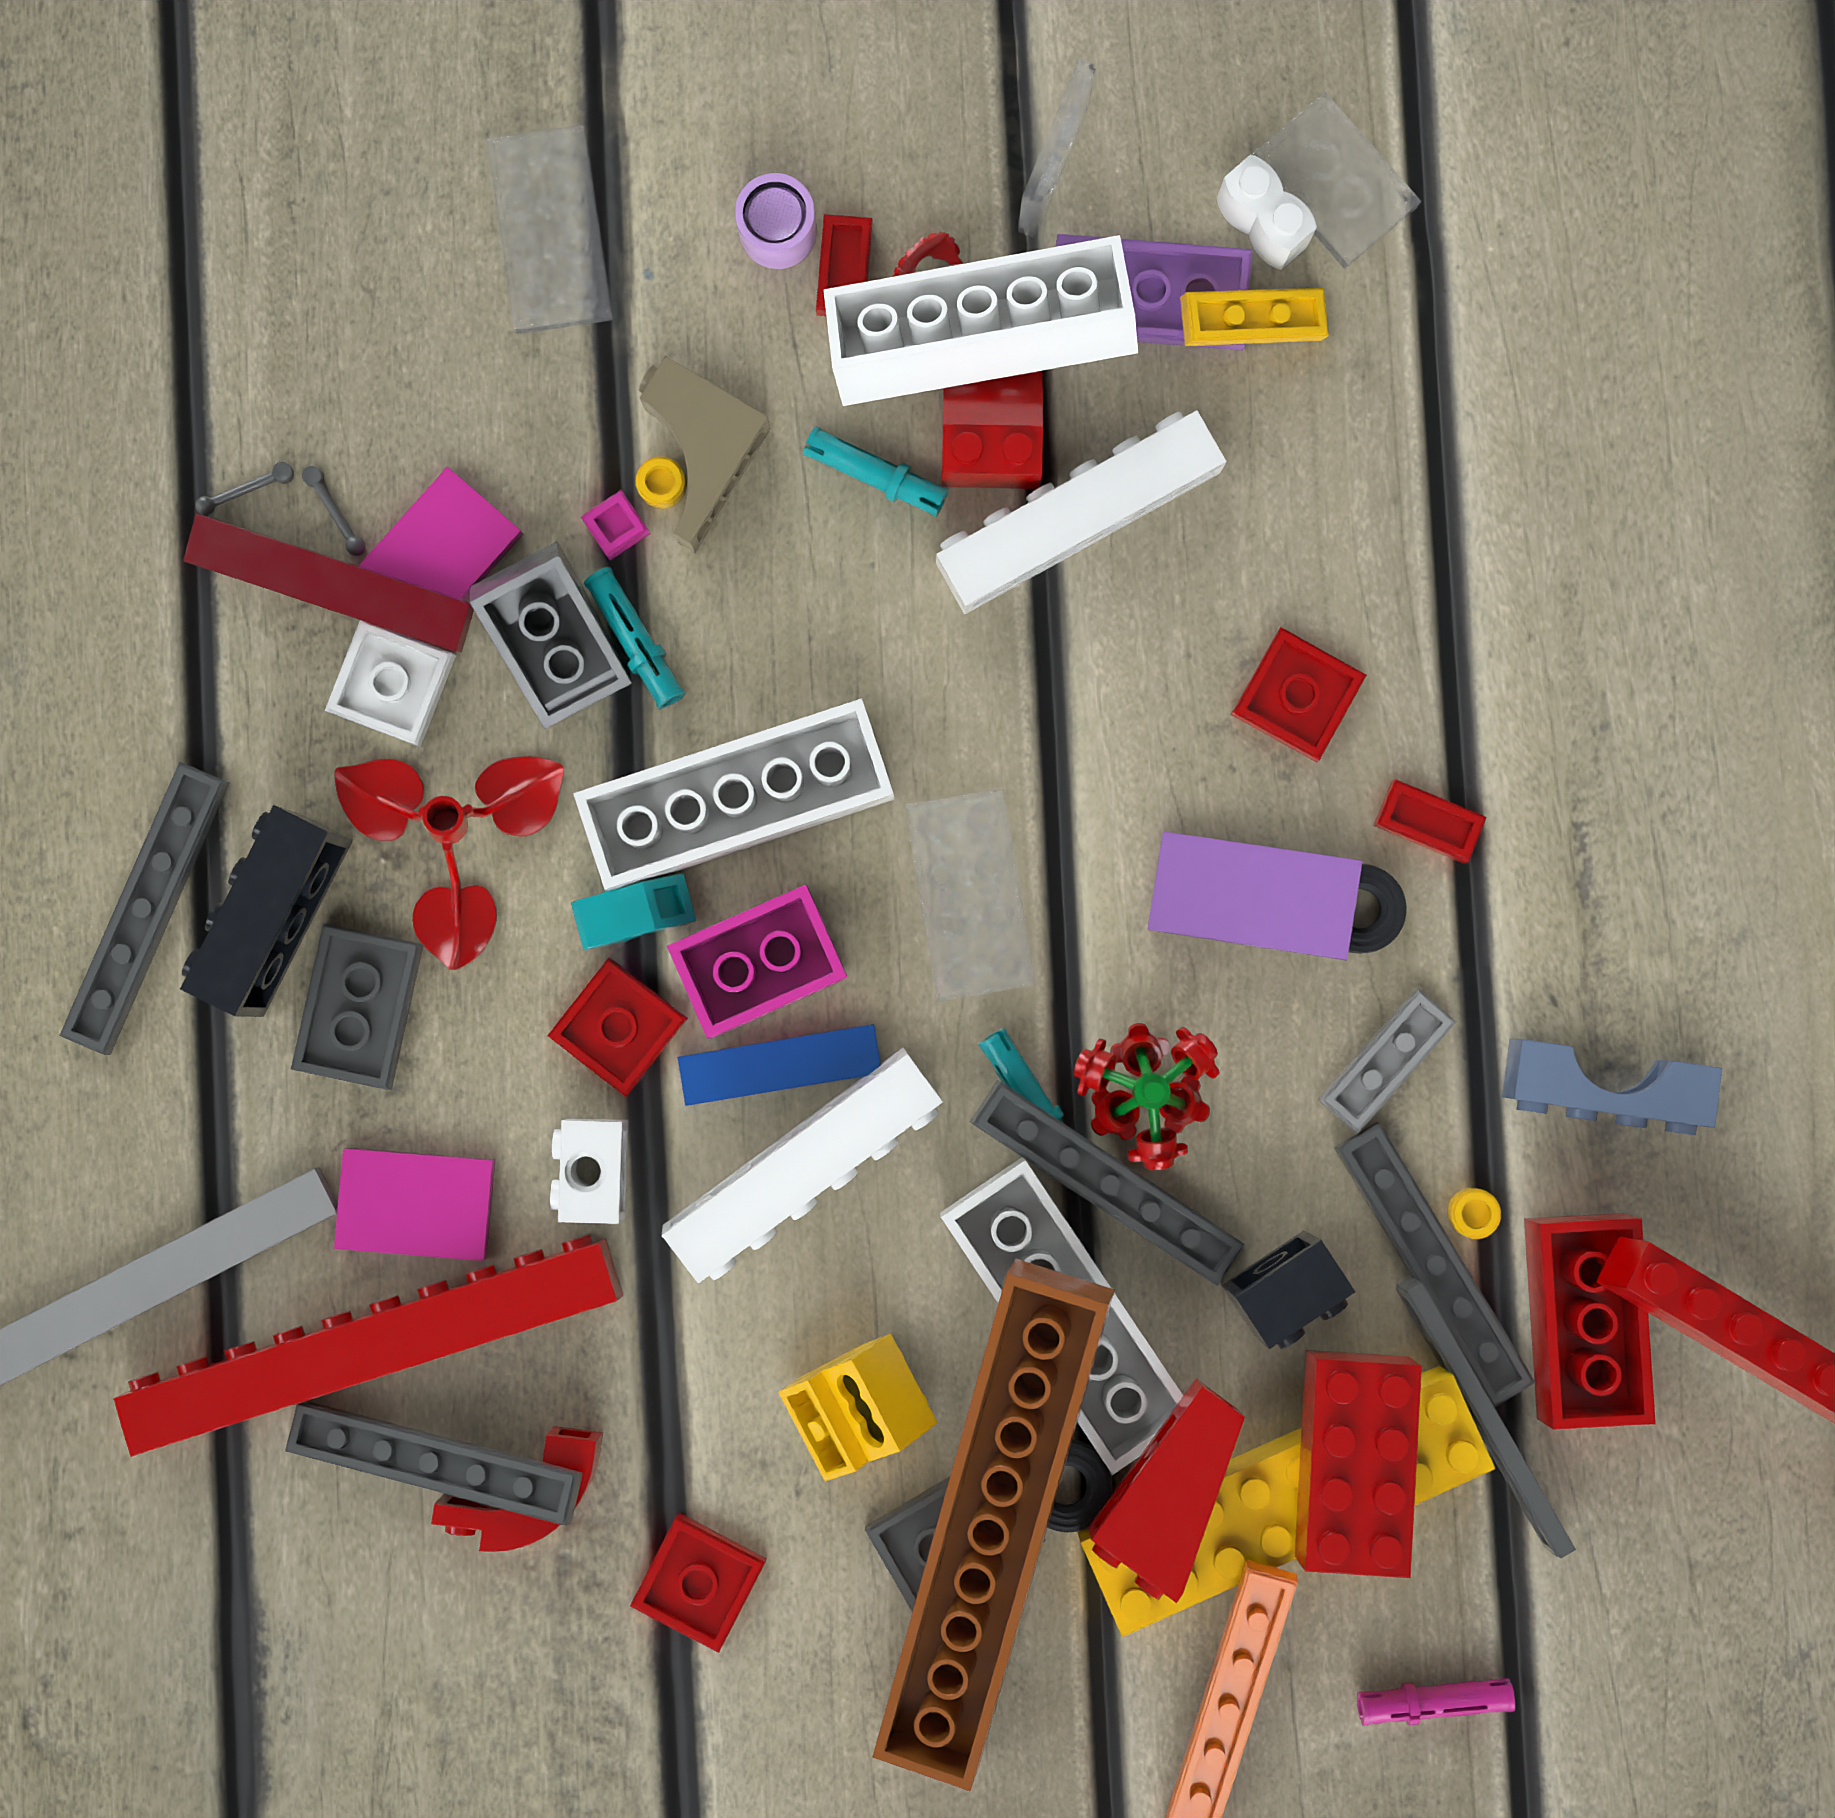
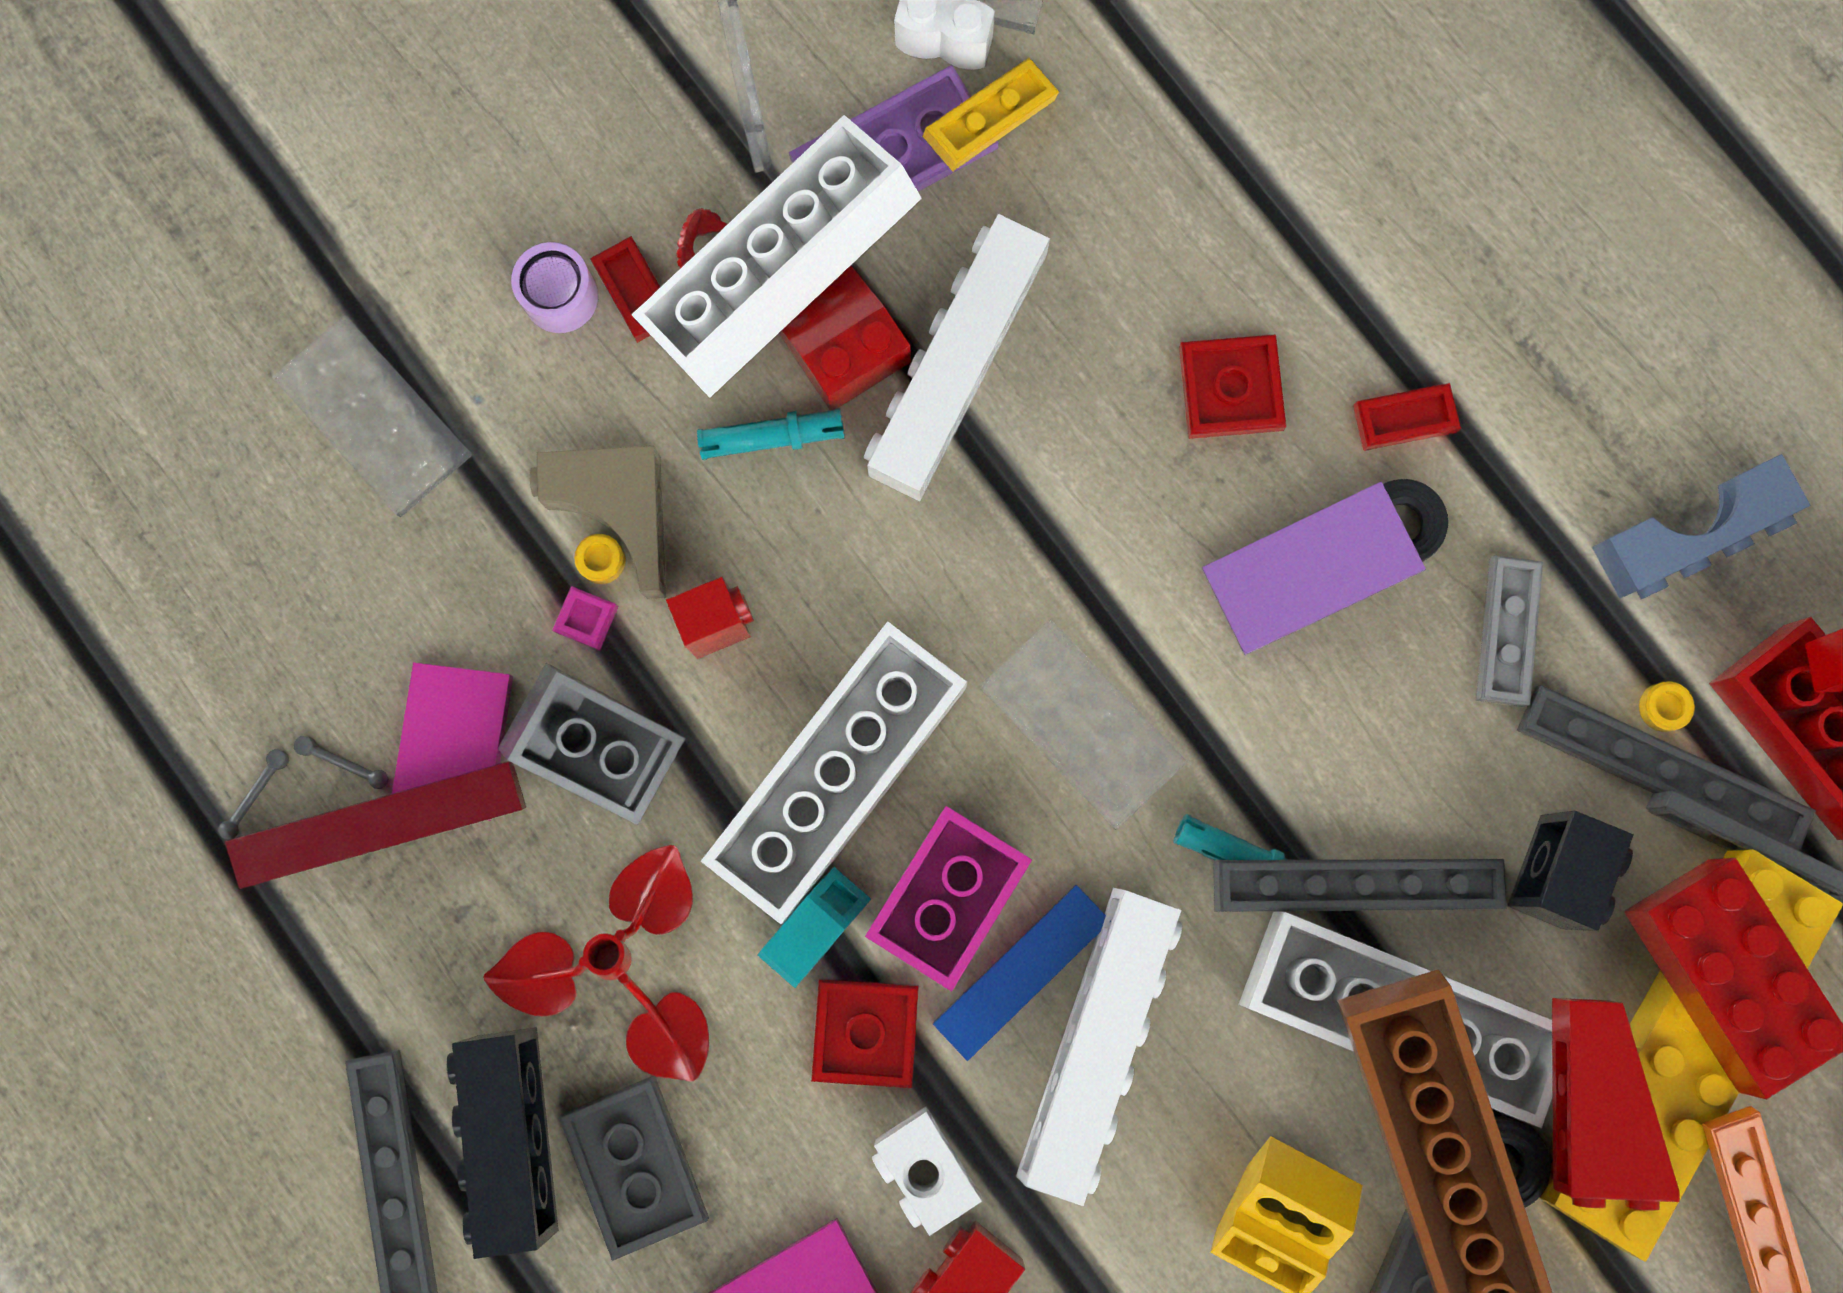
camera: 30 degrees left, 5 degrees down
(390, 683) = (482, 873): white tile -> none
(663, 687) = (659, 697): teal pin -> none
(717, 595) = (710, 617): none -> red brick
(1177, 1101) = (1362, 780): red plant -> none

